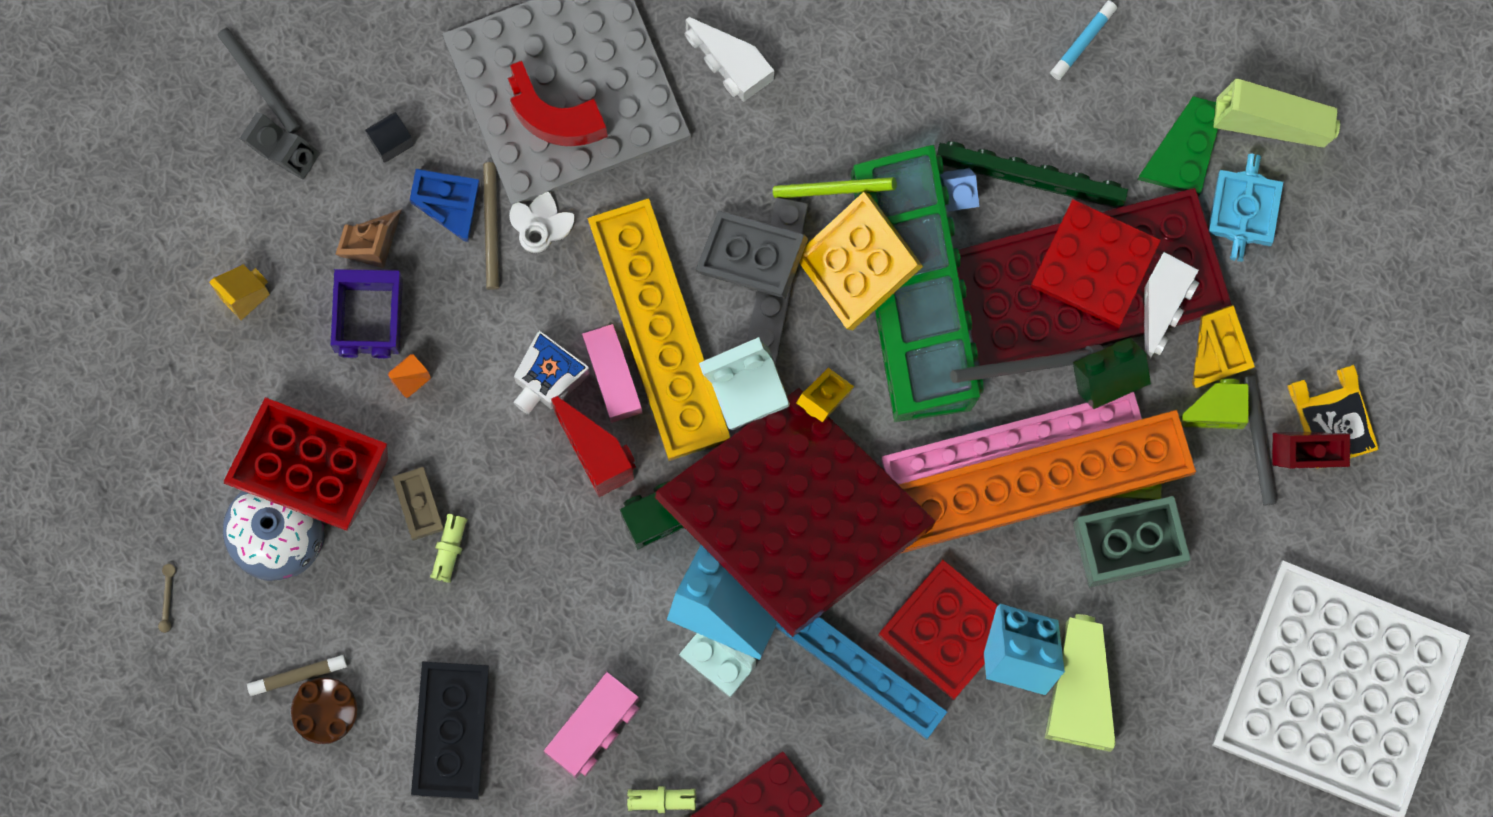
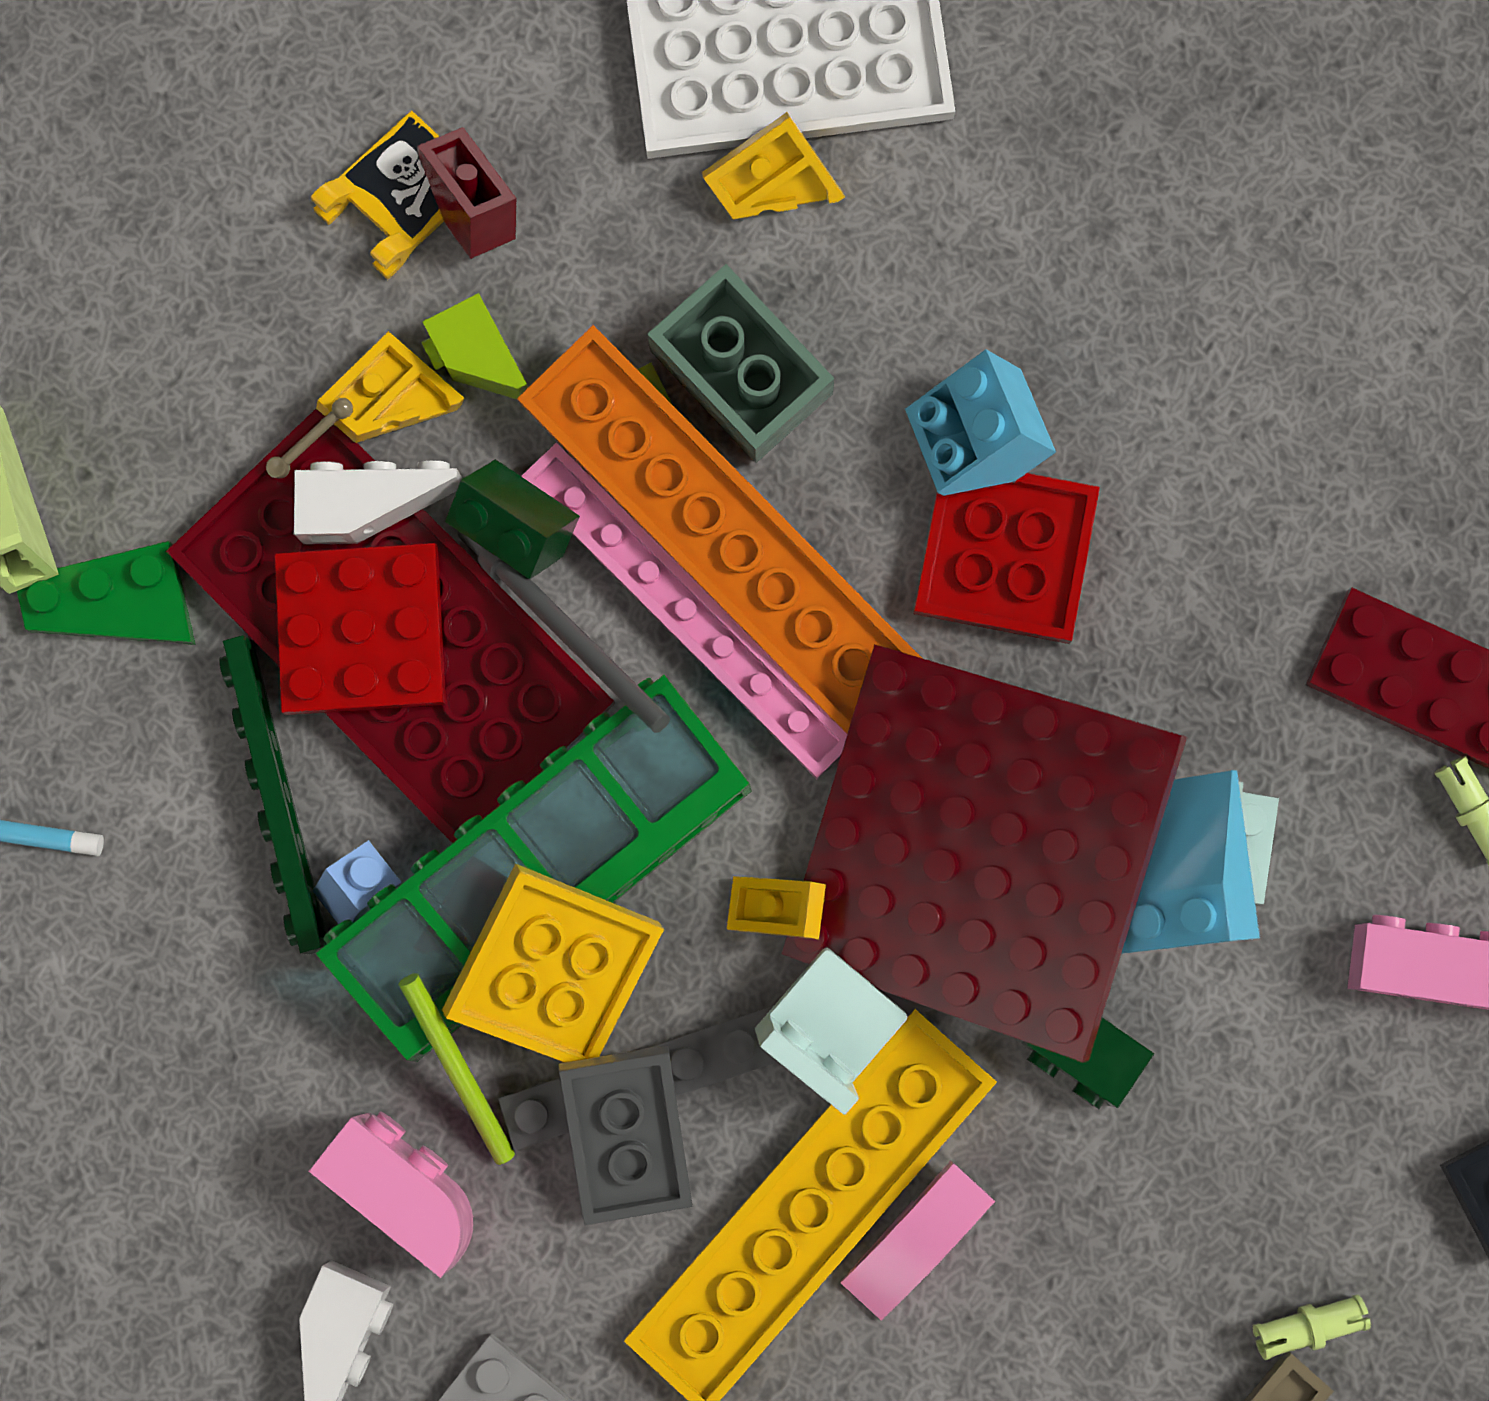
camera: 115 degrees left, 5 degrees up
(547, 373) = (976, 1336): torso -> none
(598, 451) = (1054, 1193): red slope -> none
(789, 127) = (399, 1189): none -> bright pink brick
(869, 676) = (1137, 604): dark azure plate -> none
(1081, 696) = (1008, 309): yellowish green slope -> none
(1208, 268) = (280, 466): none -> dark tan hinge
(1233, 623) = (771, 173): none -> yellow wing
(1245, 207) = (156, 467): medium azure plate -> none
(1259, 442) = (495, 270): dark grey bar -> none

